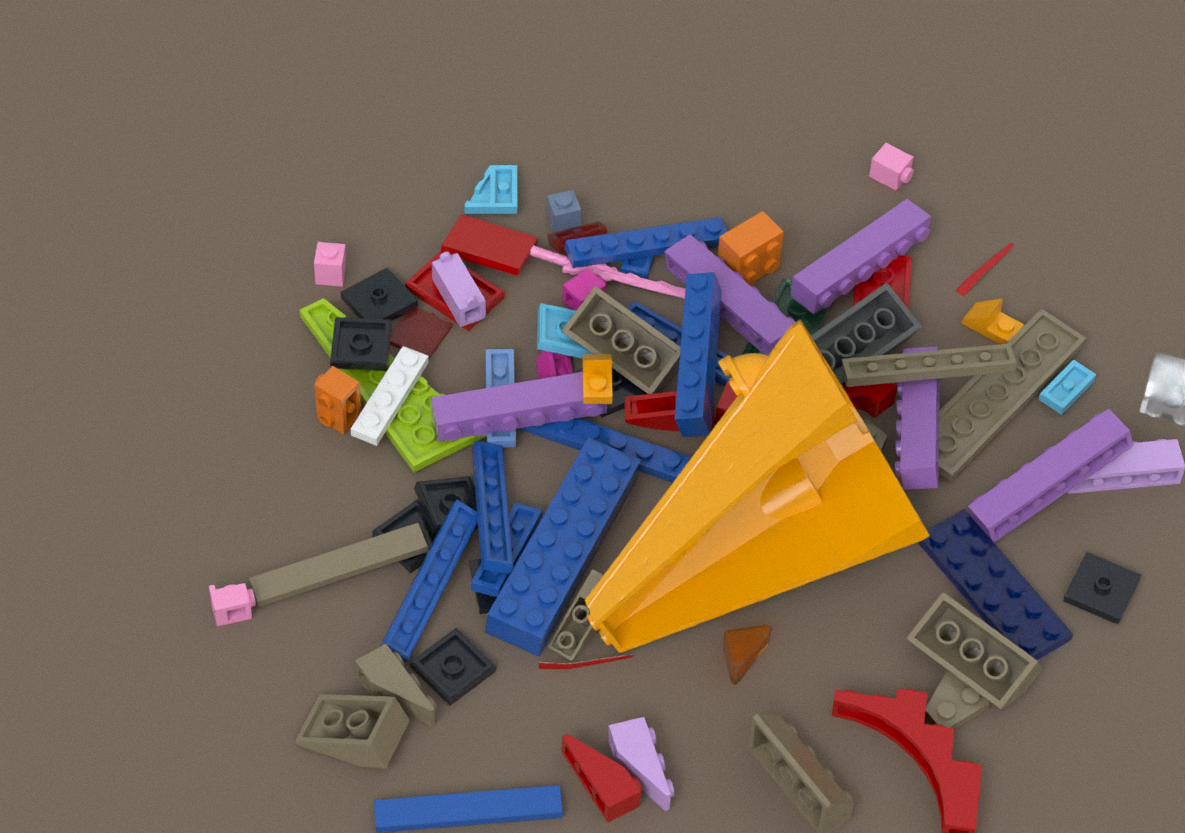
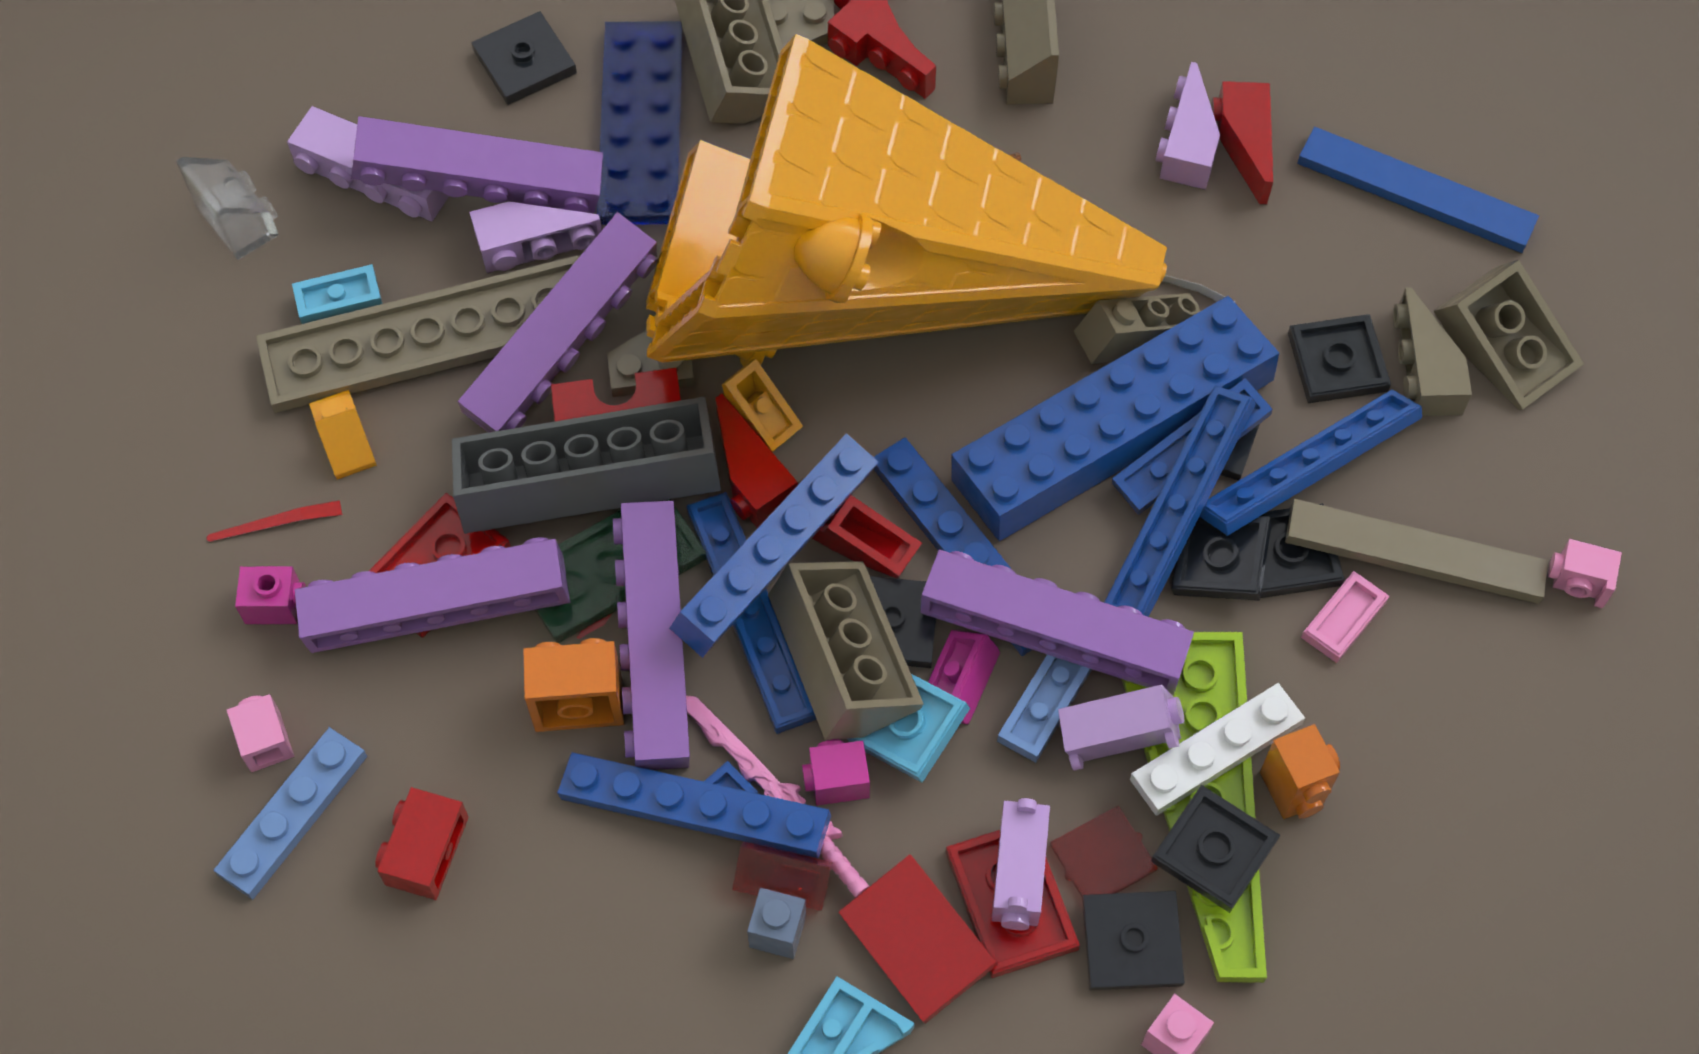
camera: 145 degrees left, 10 degrees up
(360, 515) = (1345, 617): none -> bright pink tile
(449, 376) = (1120, 724): none -> lavender brick
(597, 378) = (937, 574): light orange slope -> none
(767, 162) = (421, 843): none -> red brick
(845, 150) = (290, 813): none -> medium blue plate
(928, 365) = (503, 357): dark tan plate -> none
(949, 224) = (267, 594): none -> dark pink brick
(999, 464) = (525, 232): none -> lavender slope

